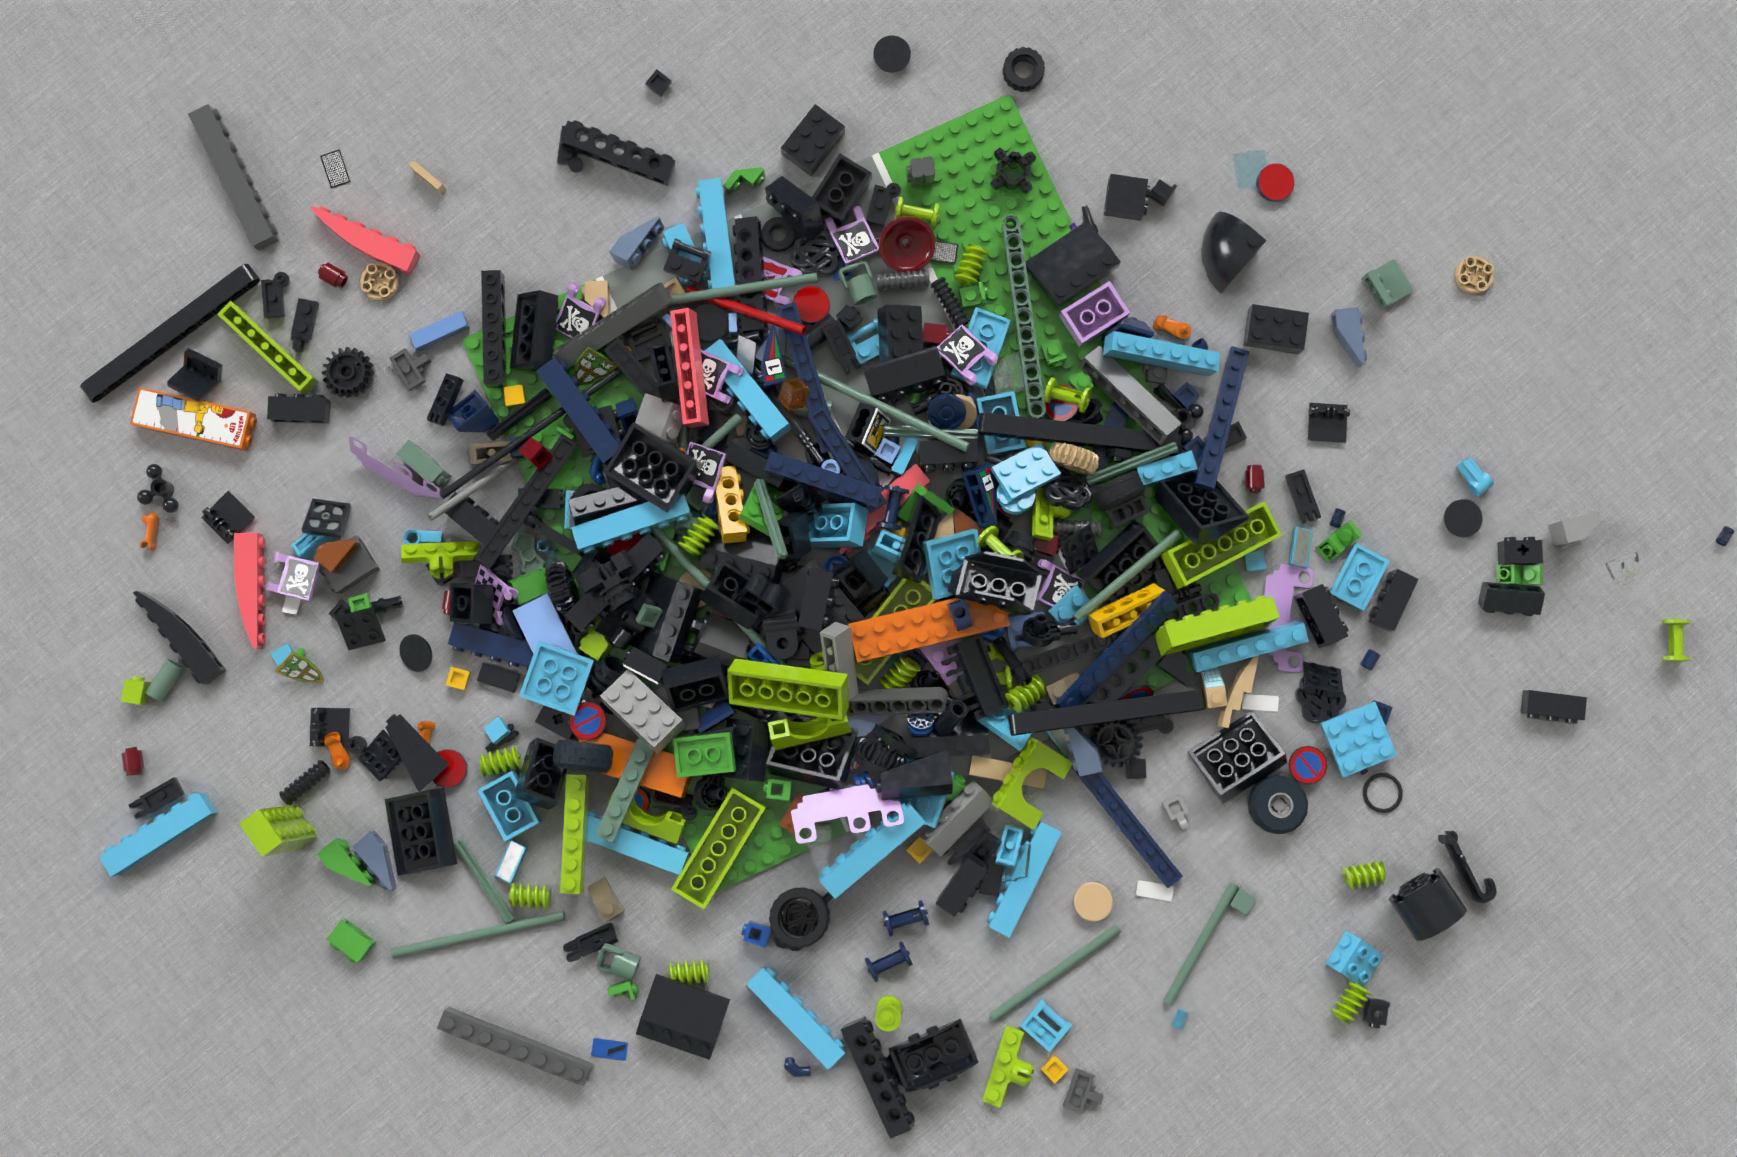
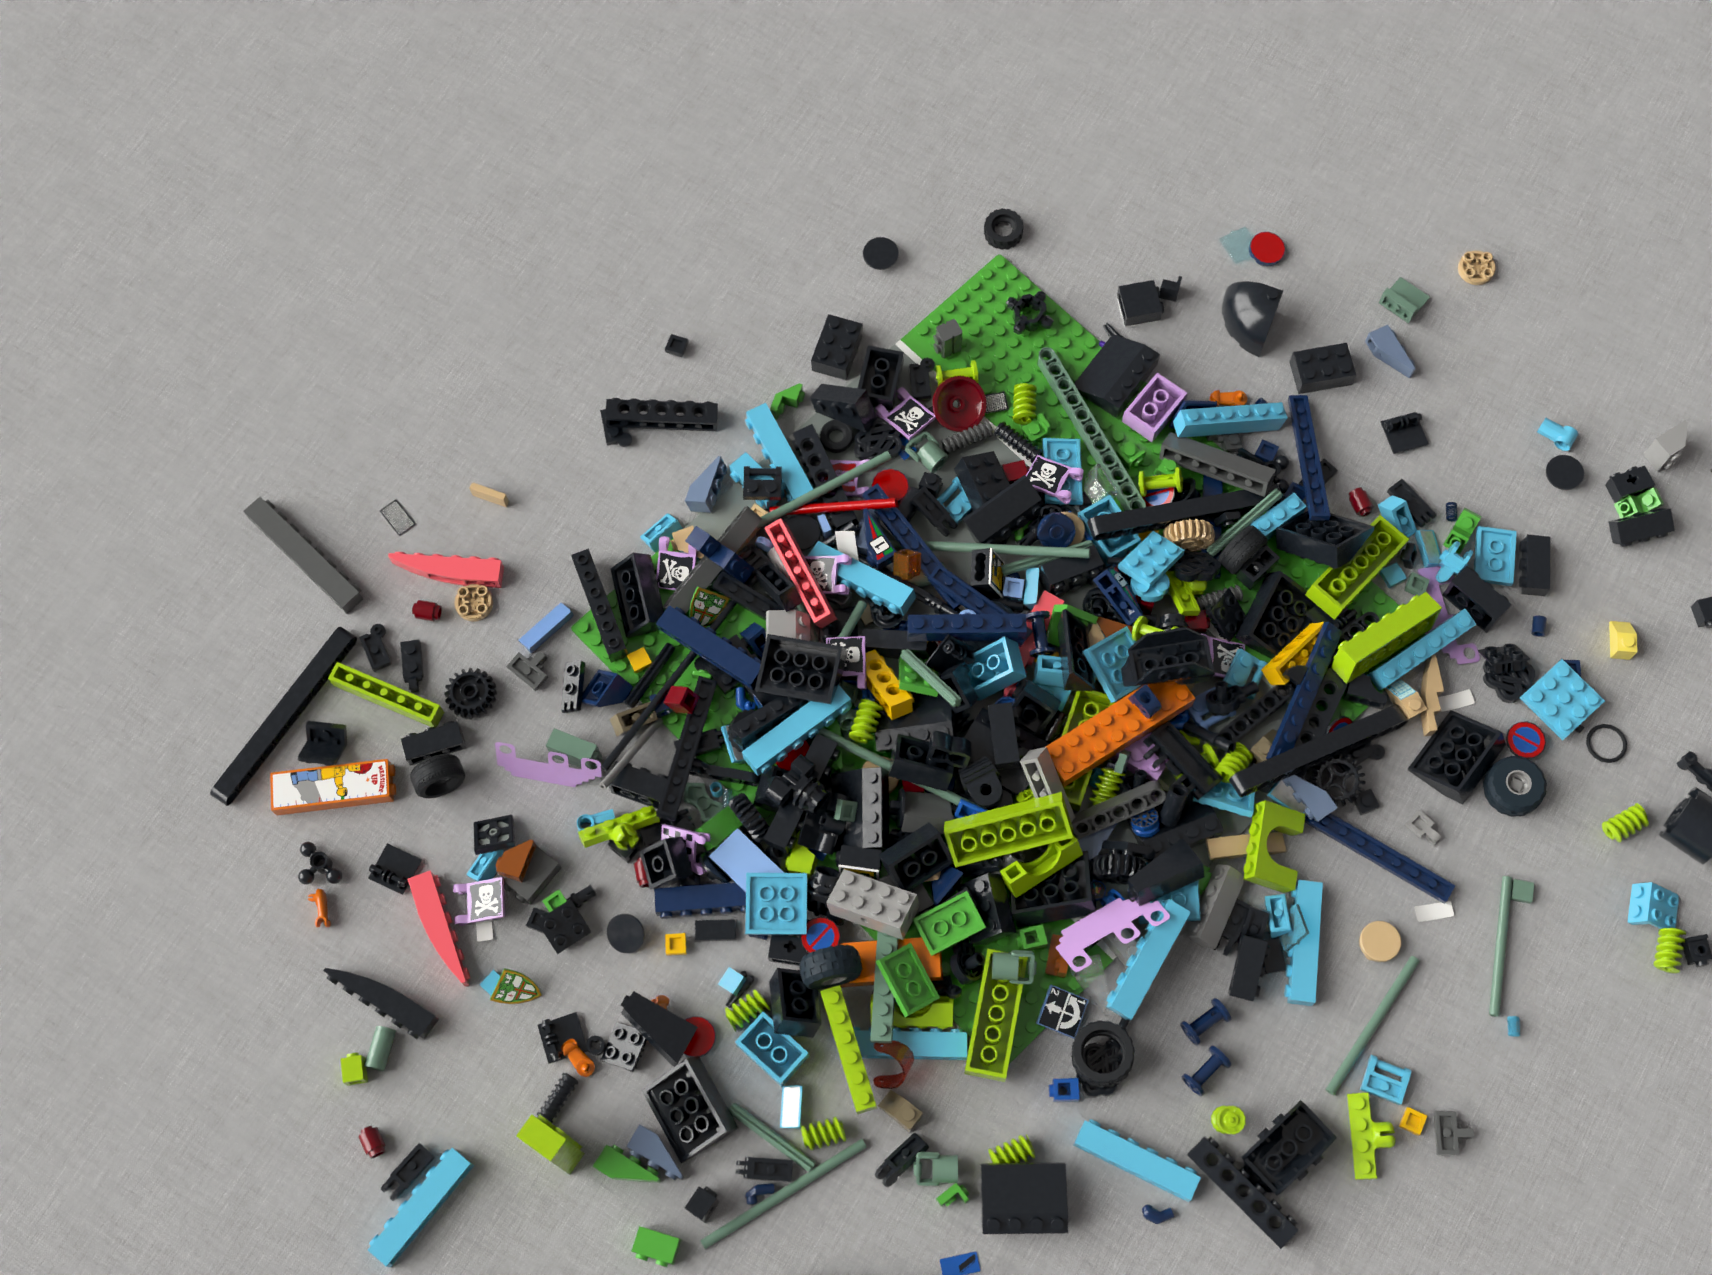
camera: 15 degrees left, 15 degrees down
(290, 445) = (437, 776): none -> black tyre
(401, 921) = (702, 1203): none -> black brick
(456, 924) = (760, 1189): none -> dark blue arm
(469, 908) = (766, 1169): none -> black hinge
(579, 272) = (663, 527): none -> medium azure slope
(618, 853) = (902, 1055): none -> clear red piece
(620, 325) = (720, 554): none -> dark blue arch
(648, 792) = (907, 979): none -> bright green plate
(740, 811) = (1006, 966): none -> sand green piece
(781, 863) = (1062, 1011): none -> tile
(919, 849) = (1191, 951): yellow plate -> none
(921, 658) = (1122, 761): none -> sand green tile
(1115, 632) = (1295, 674): none -> black tile
(1126, 576) = (1282, 623): sand green piece -> none
(1271, 580) = (1416, 584): none -> sand green tile
(1277, 547) = (1409, 555): none -> black plate
(1283, 506) = (1398, 514): none -> medium azure slope
(1312, 571) = (1452, 563): none -> medium azure hinge
(1442, 701) = (1622, 640): none -> light yellow slope

